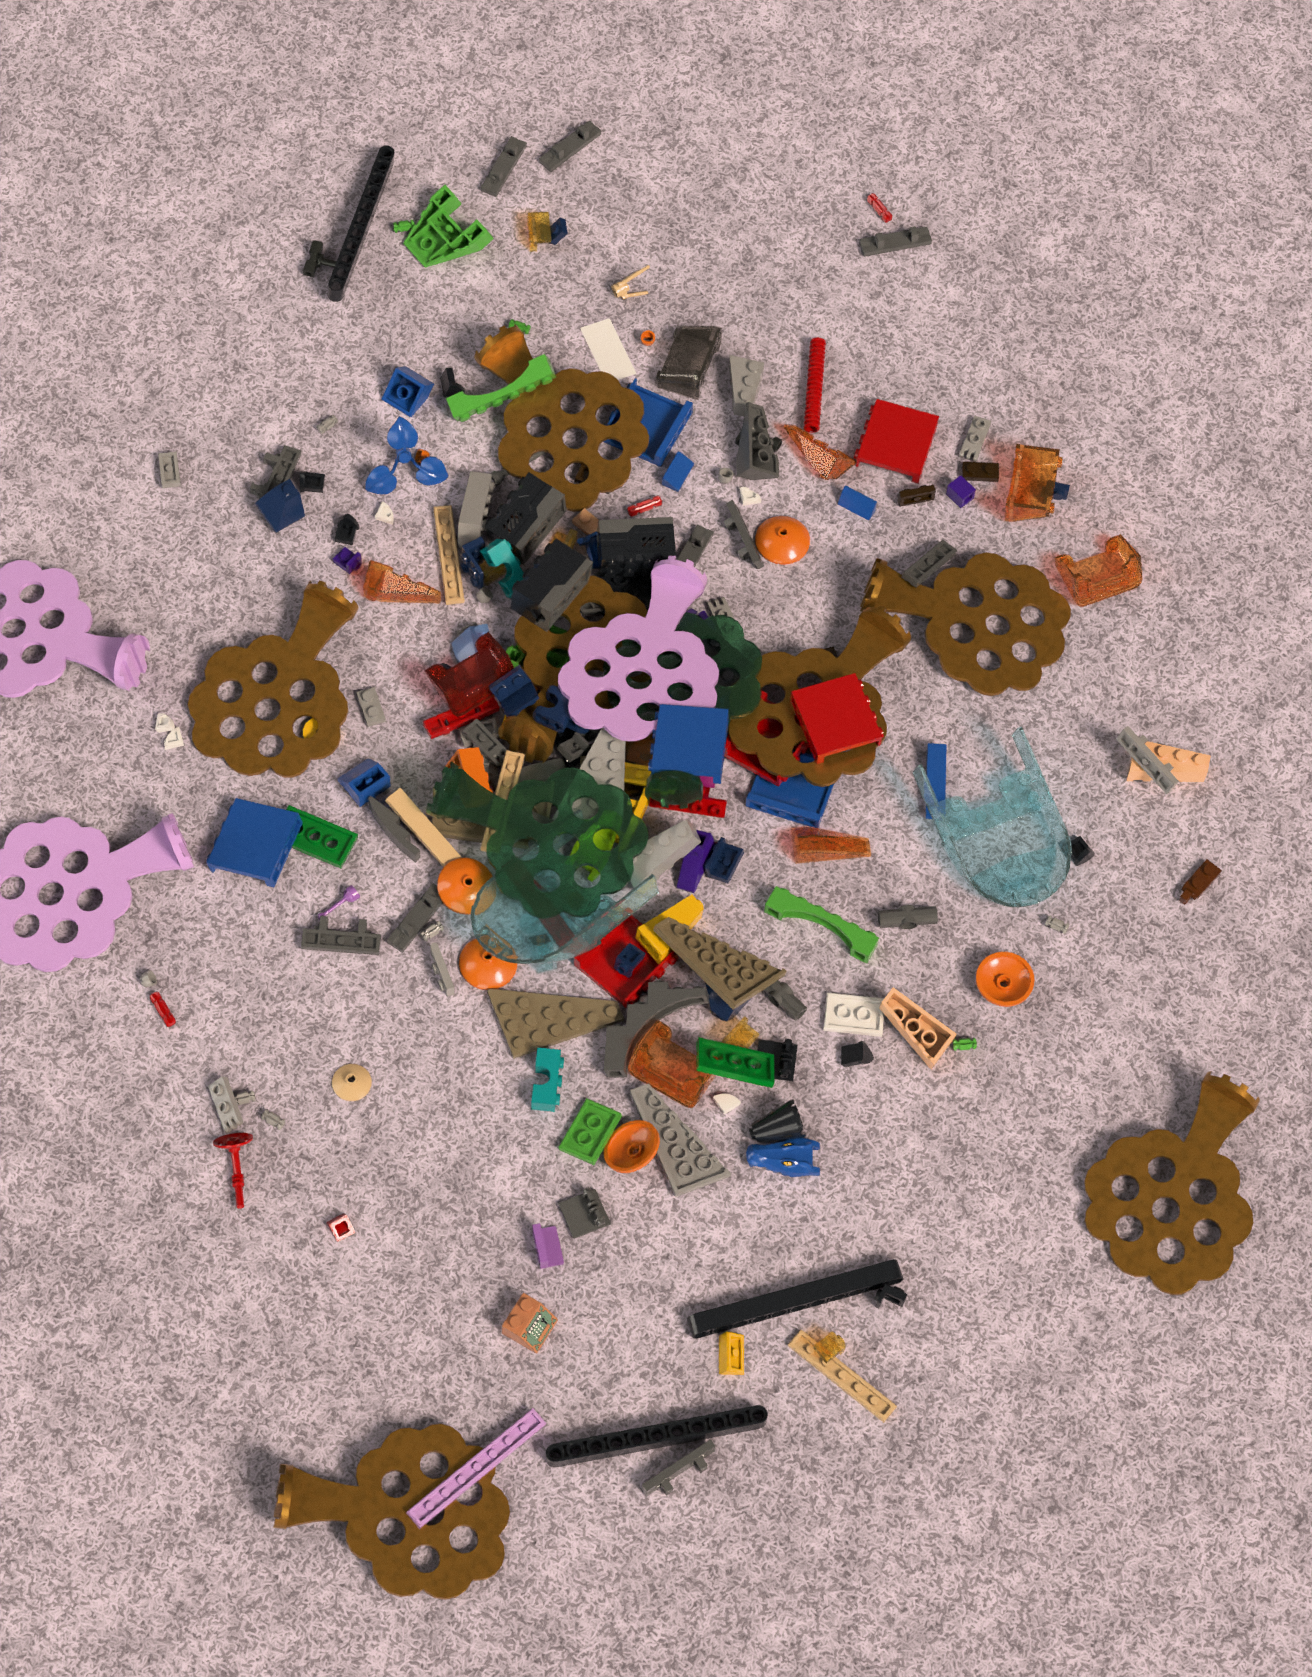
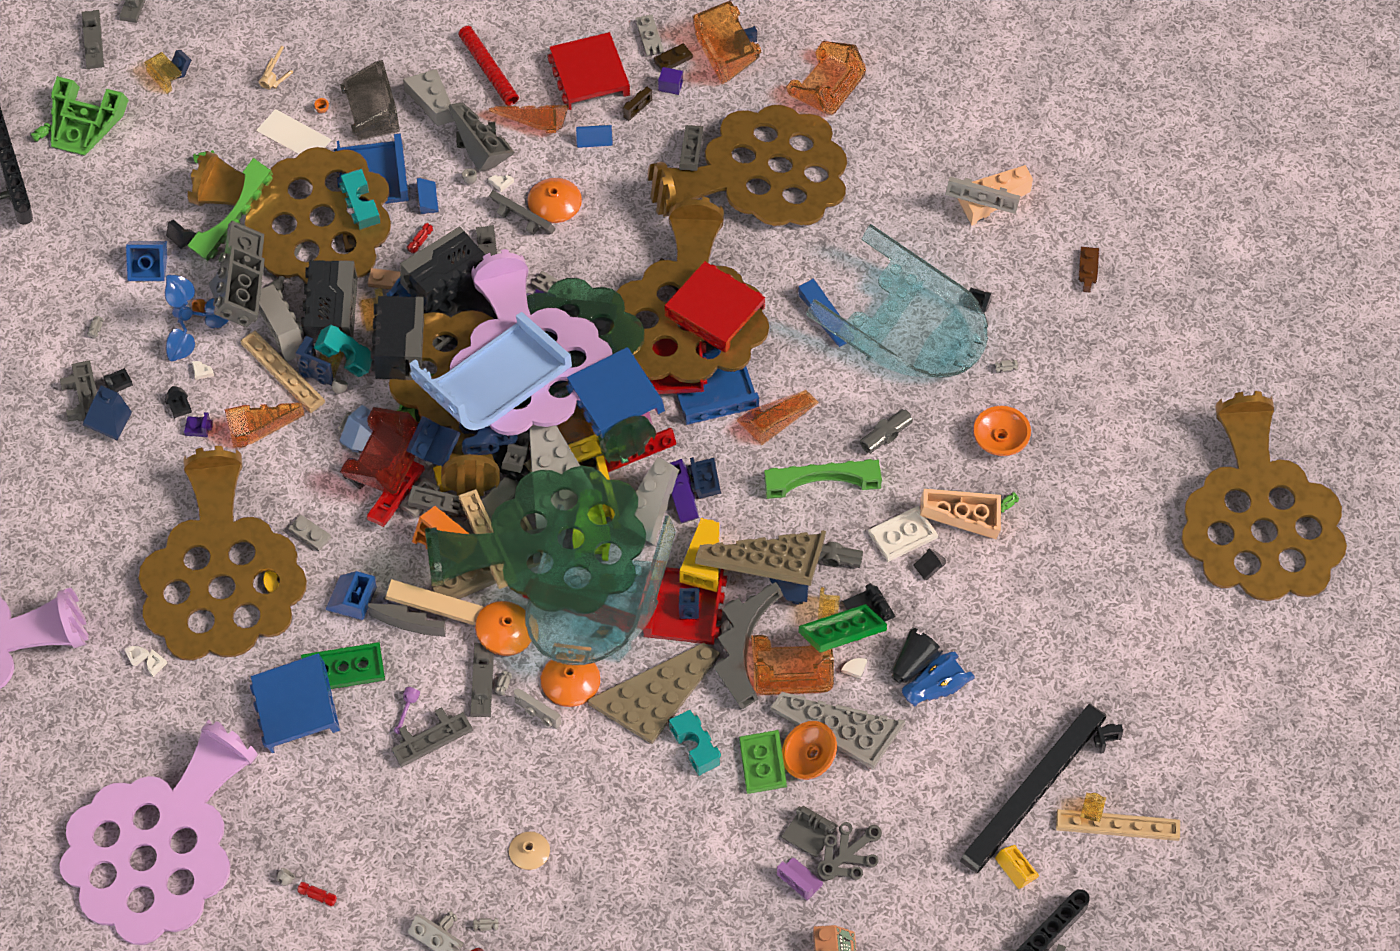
camera: 30 degrees left, 5 degrees down
(465, 450) = (240, 275): none -> dark grey wedge
(598, 1252) = (847, 854): none -> dark grey plant
(599, 667) = (497, 375): none -> light blue panel
(616, 427) = (364, 212): none -> teal arch

